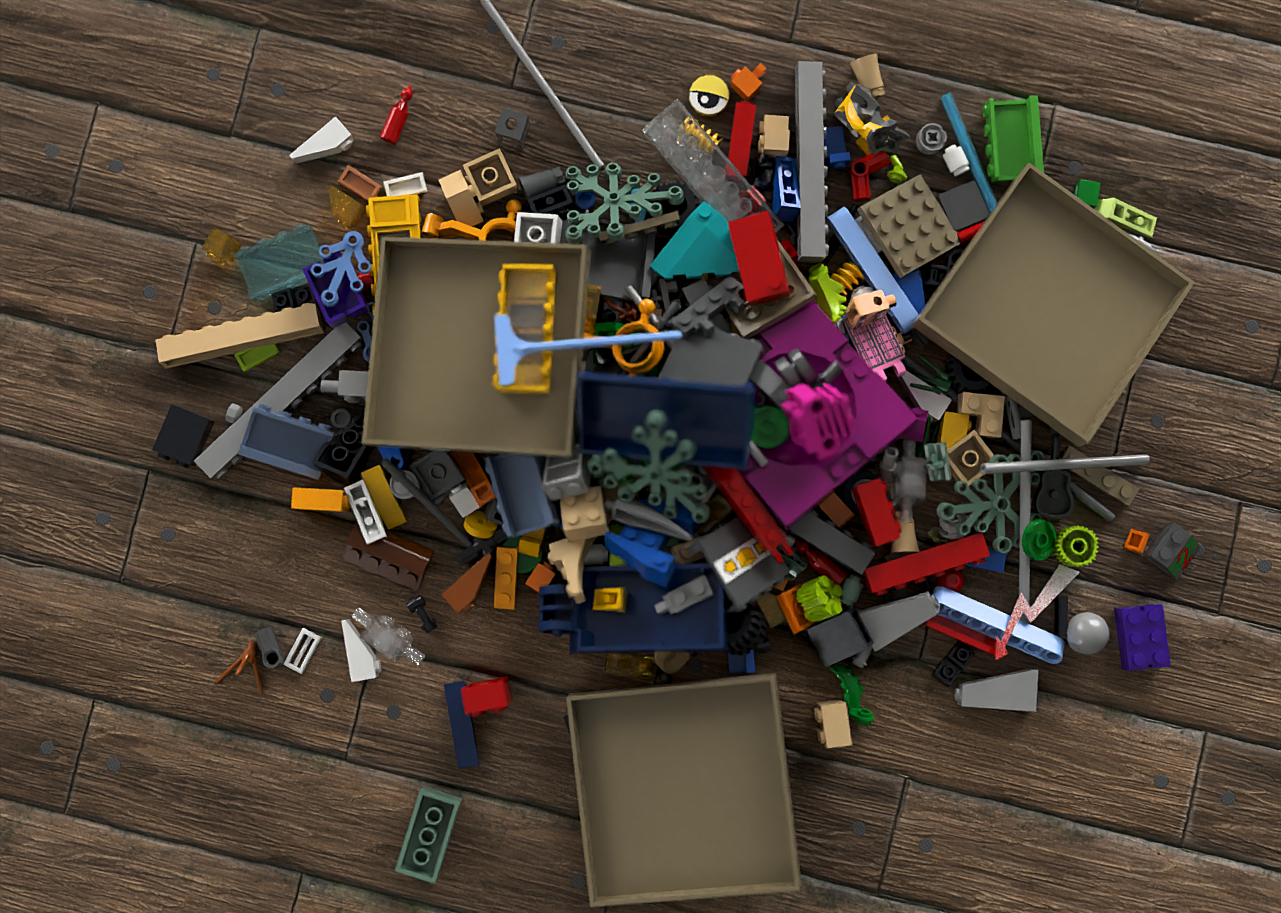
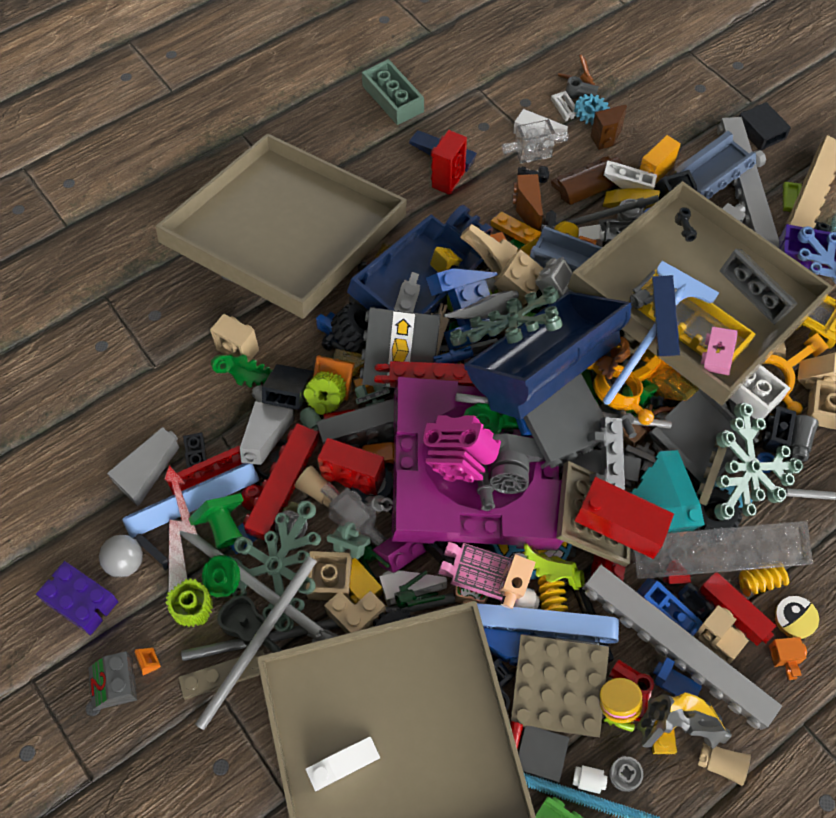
camera: 130 degrees right, 25 degrees down
(298, 624) = (587, 106): none -> medium azure gear
(310, 580) = (608, 126): none -> reddish brown slope
(418, 408) = (682, 219): none -> black bar
(446, 292) = (757, 286): none -> dark grey slope
(549, 378) = (642, 297): none -> dark grey plant
(563, 339) = (665, 316): none -> dark blue slope
(565, 269) = (719, 362): none -> bright pink brick
(624, 367) = (618, 355): none -> dark orange plant
(717, 507) = (454, 357): none -> blue pin
(889, 173) = (621, 700): none -> yellow head
(999, 582) = (218, 515): none -> green plant
(1098, 328) = (342, 763): none -> white slope

